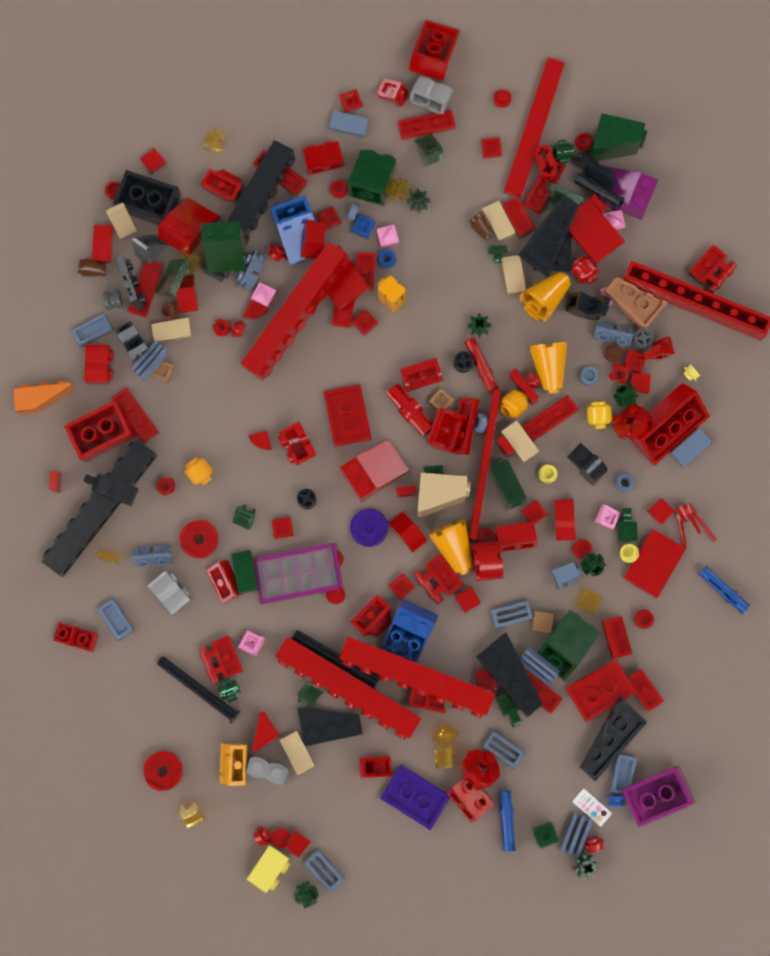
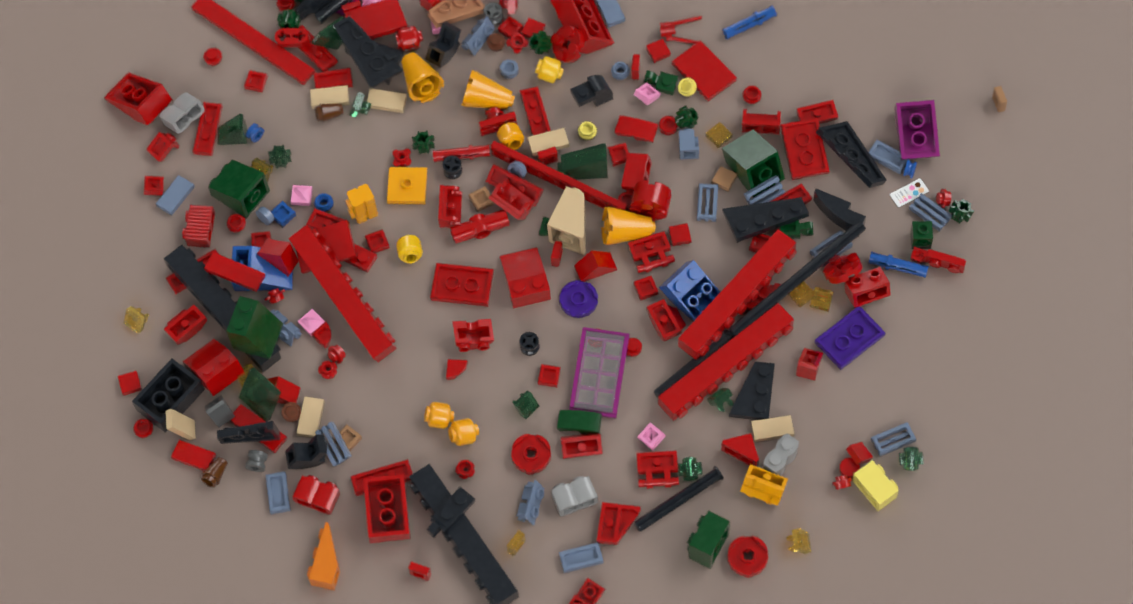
camera: 70 degrees left, 15 degrees down
(157, 638) = (615, 522): none -> red wing
(161, 731) = (708, 539): none -> dark green brick
(208, 443) = (438, 415): none -> light orange head
(278, 207) = (234, 272): none -> red tile
(364, 354) = (409, 248): none -> yellow head
(431, 327) = (407, 185): none -> light orange plate
(435, 168) = (254, 132): none -> blue bush
(453, 729) = (799, 277): none -> black axle
(455, 317) = (398, 162): none -> red plate
(524, 876) = (939, 259): none -> red hinge
(542, 746) = (837, 210): none -> black slope
(632, 496) = (635, 70): none -> red tile
(726, 868) = (999, 99): none -> medium nougat tile

